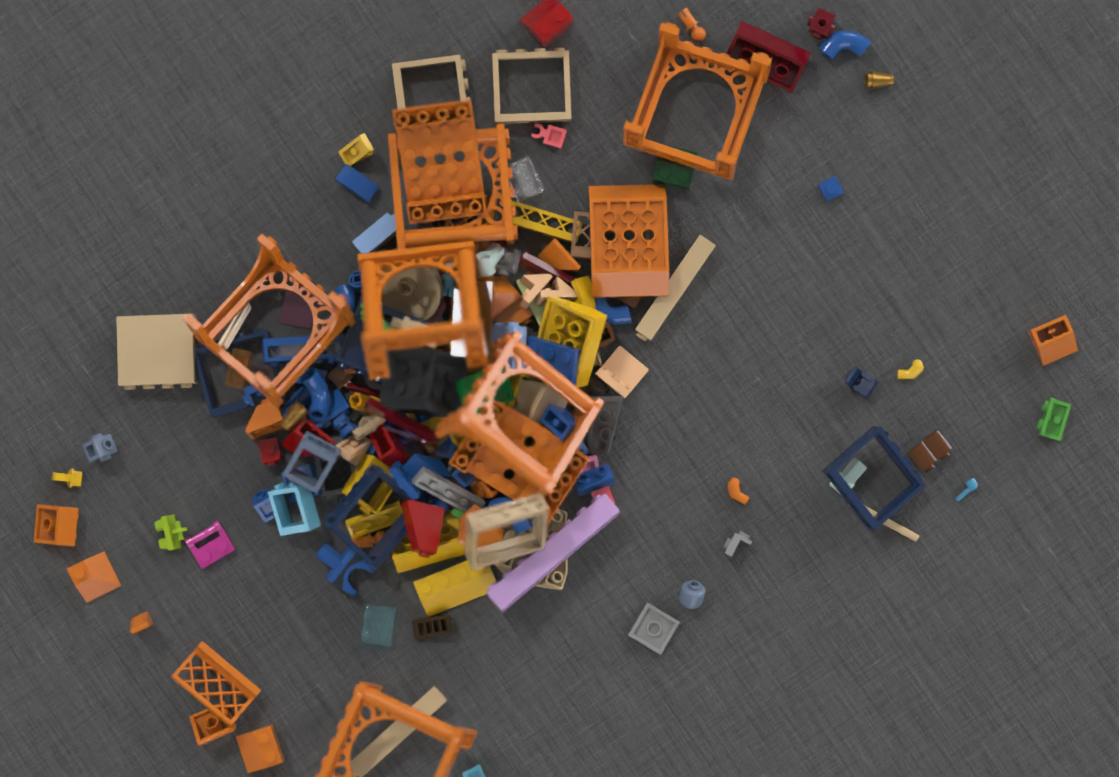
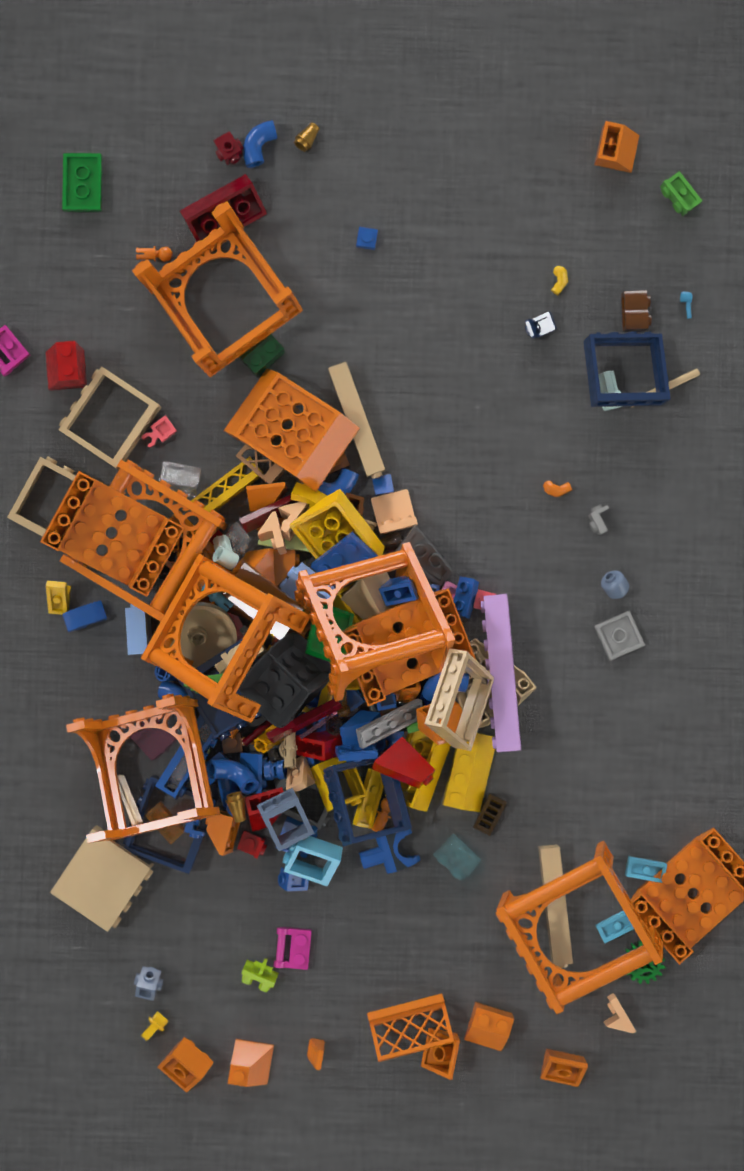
camera: 55 degrees left, 0 degrees up
(637, 347) = (383, 485): none -> blue slope

